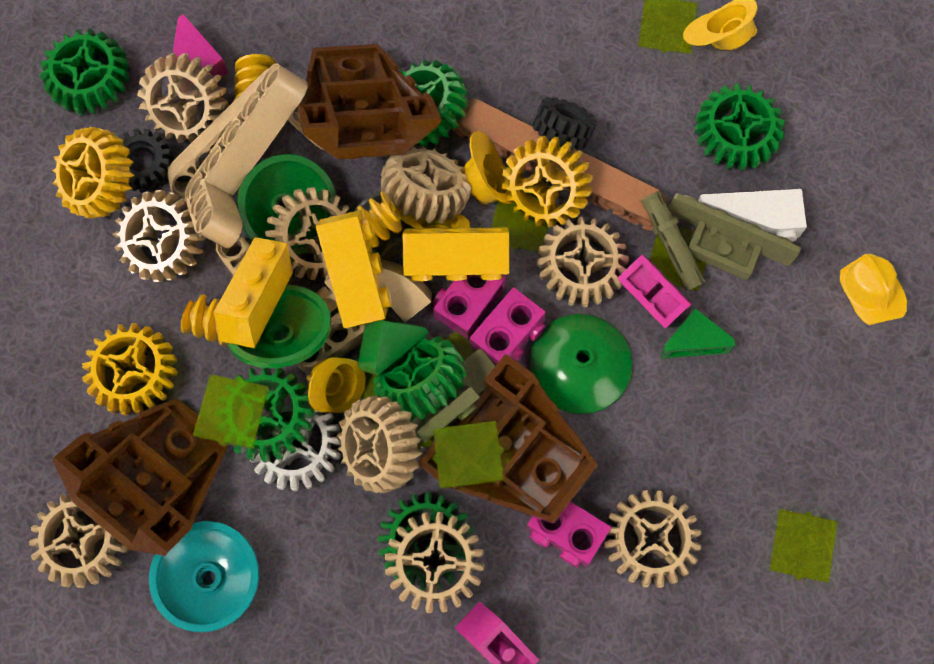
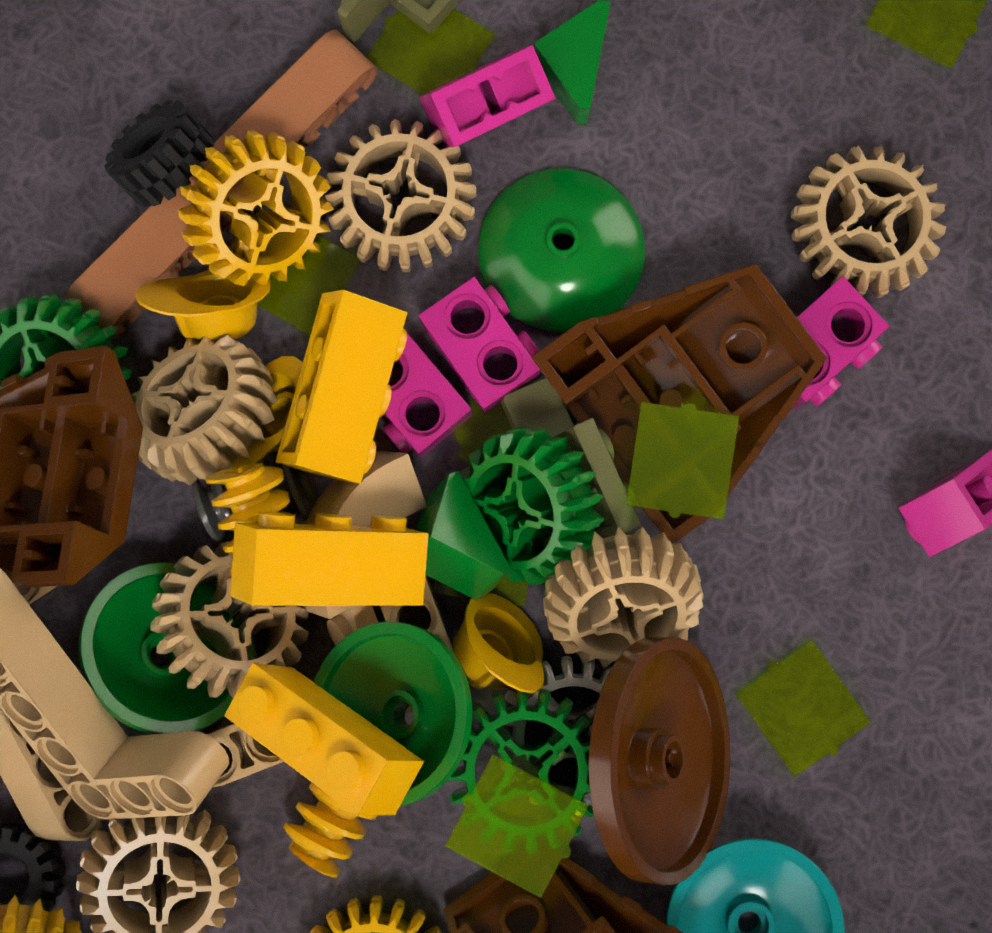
camera: 75 degrees left, 10 degrees up
(288, 486) = (659, 760): none -> reddish brown dish
(344, 579) = (802, 708): none -> clear neon green piece
(417, 508) = (811, 526): green gear -> none
(438, 530) = (884, 575): tan gear -> none
(676, 247) = (398, 44): olive pin -> none

